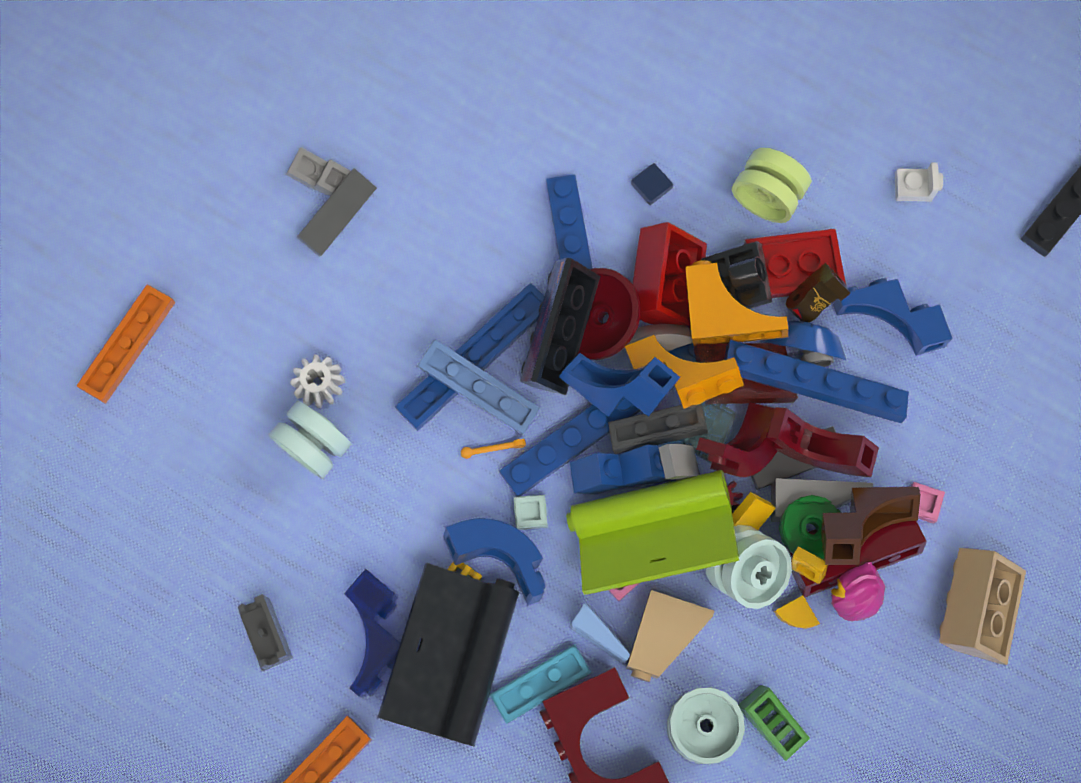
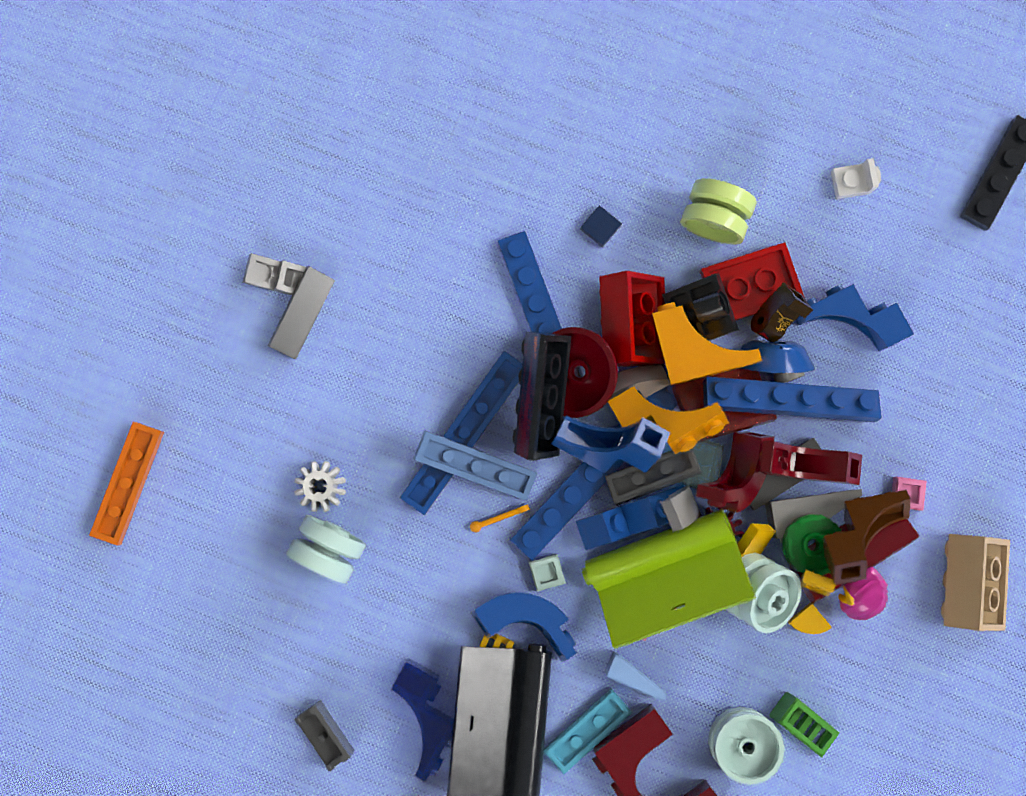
camera: 15 degrees left, 10 degrees up
(663, 634) = (693, 665): tan slope -> none

